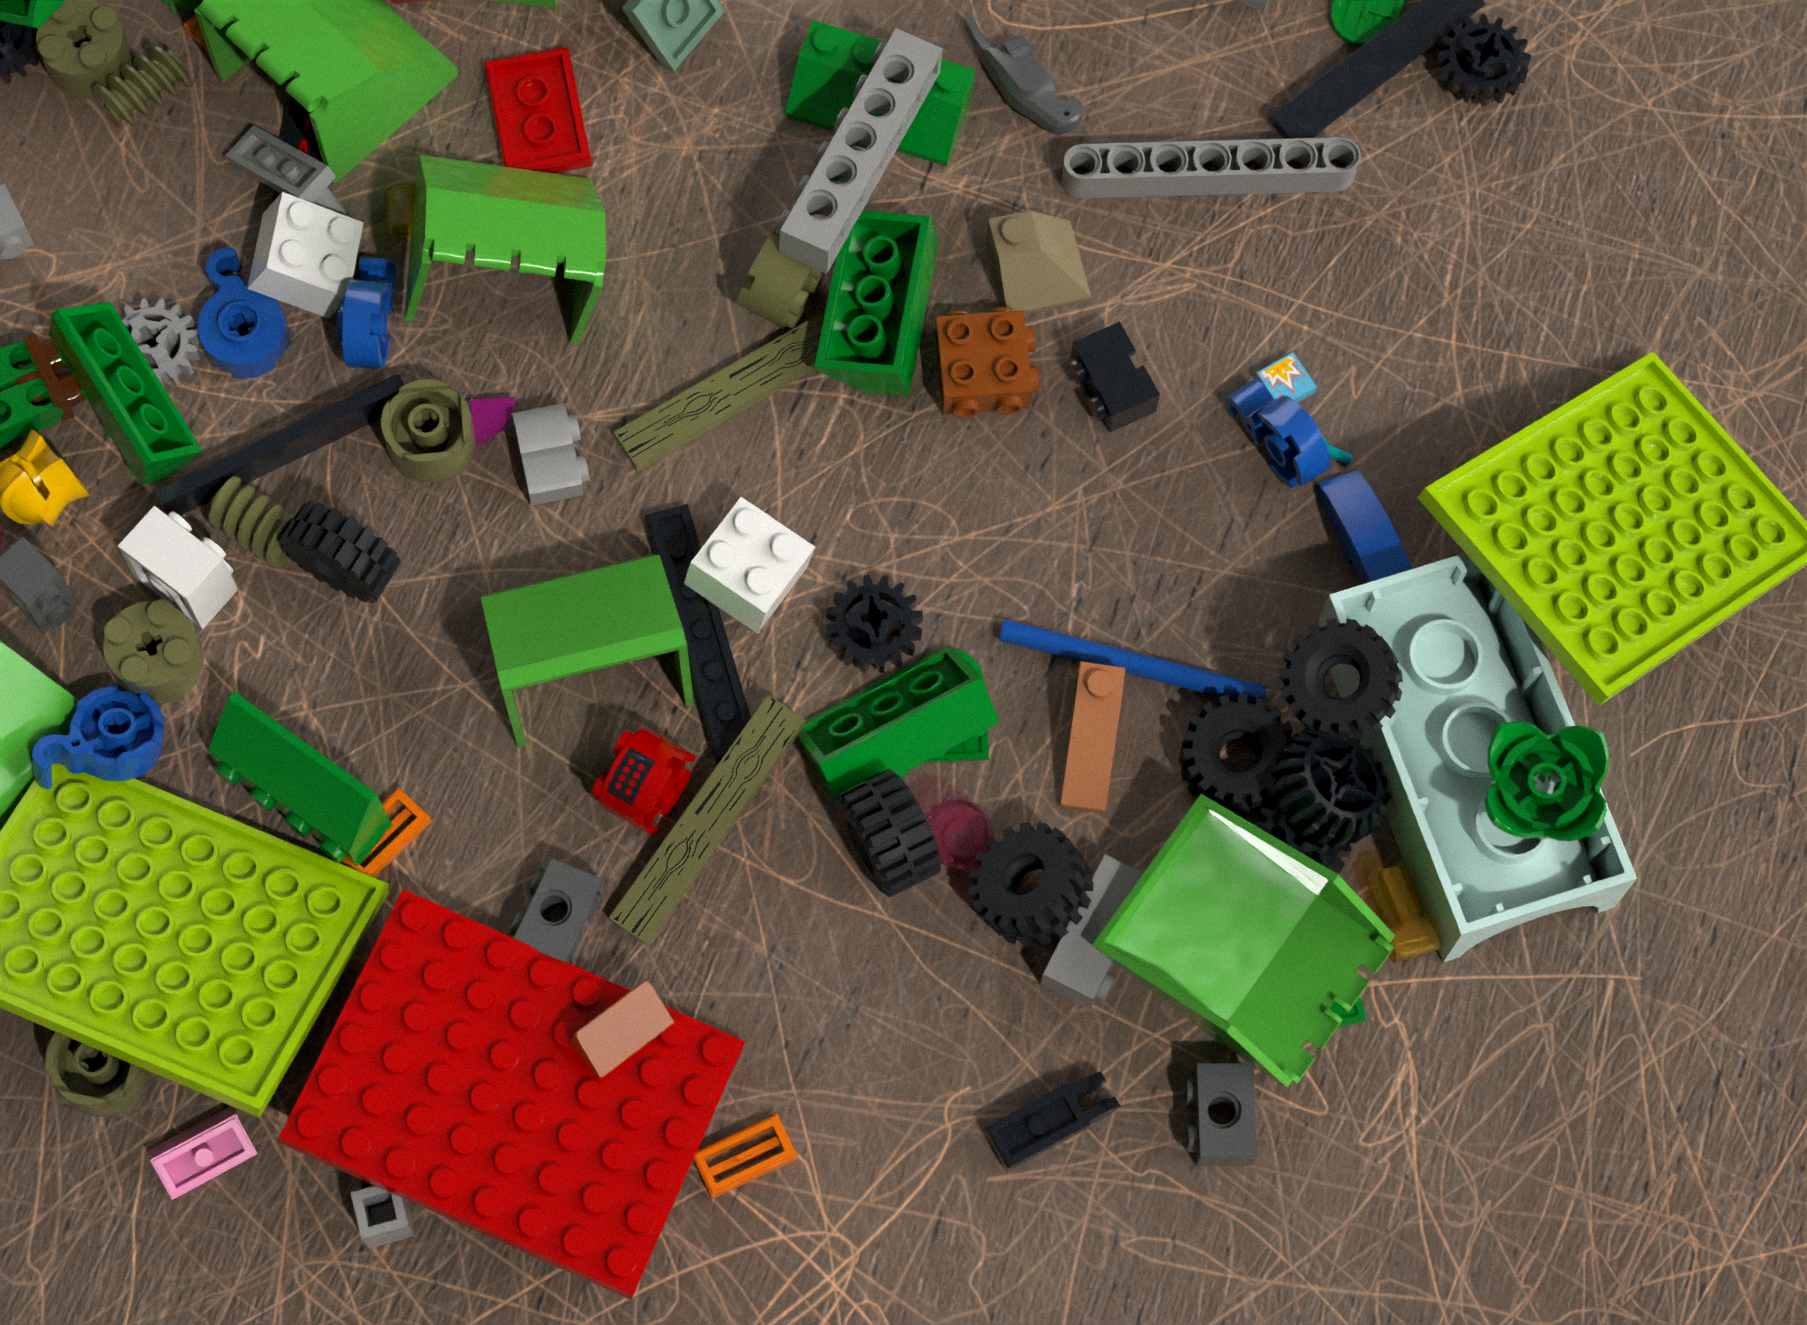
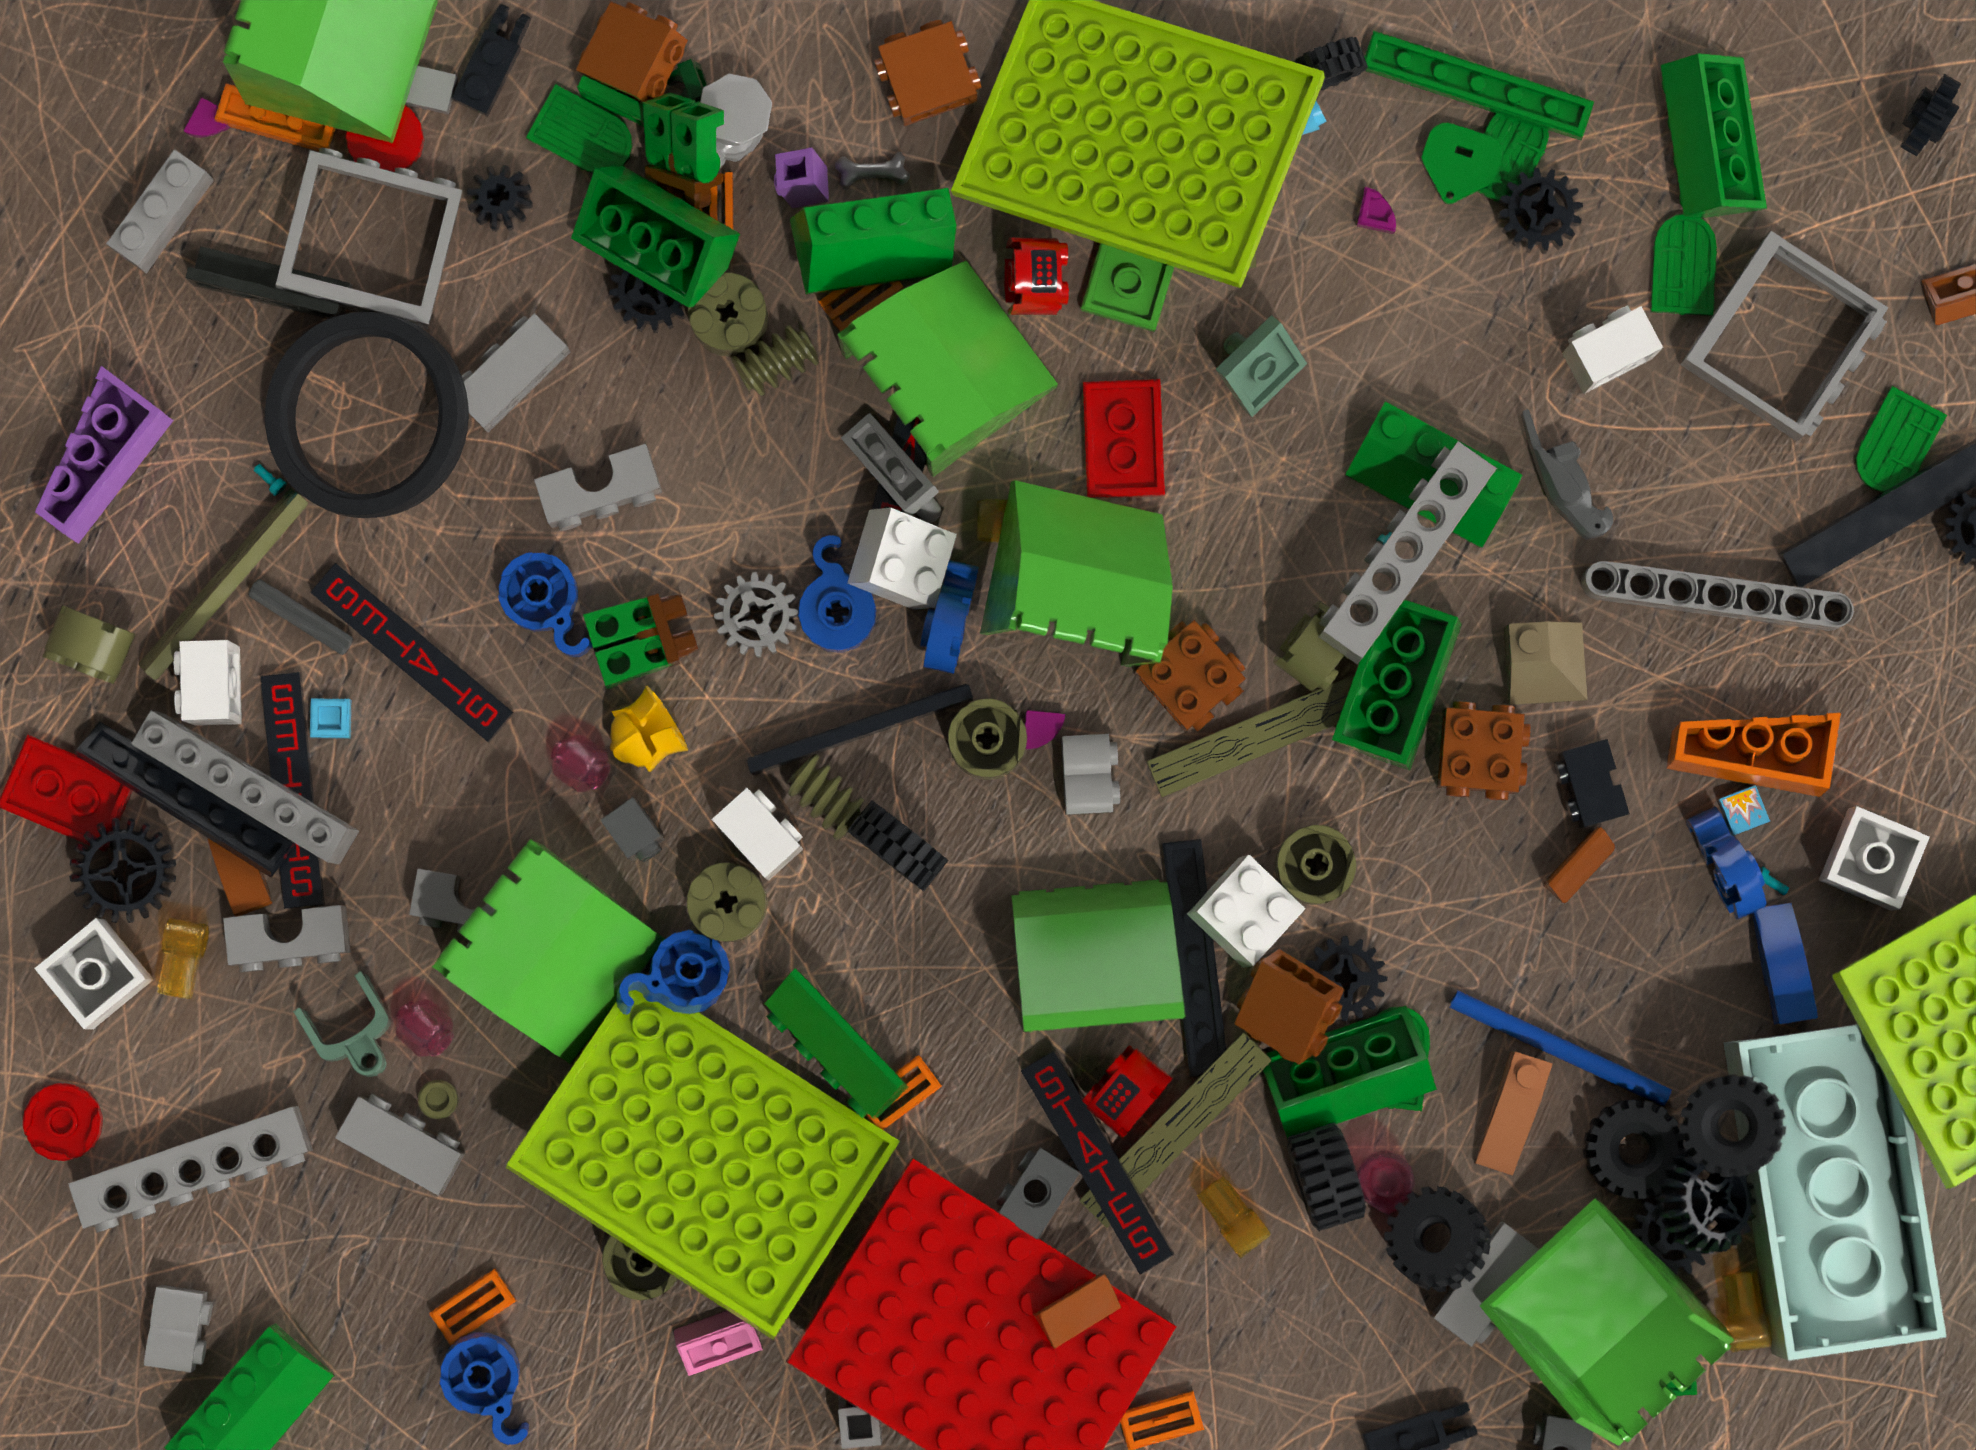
camera: 15 degrees right, 15 degrees up
(123, 390) = (731, 666): green slope -> none
(624, 869) = (1098, 1163): none -> black tile
(648, 334) = (1193, 675): none -> dark orange brick
(801, 914) = (1238, 1223): none -> clear yellow piece
(814, 655) = (1289, 1006): none -> dark orange brick
(824, 480) = (1334, 853): none -> olive brick
(1116, 464) = (1580, 864): none -> dark orange slope
(1288, 313) = (1760, 751): none -> orange wedge
(1439, 401) = (1874, 858): none -> white brick
(1571, 758) = (1917, 1241): green brick -> none

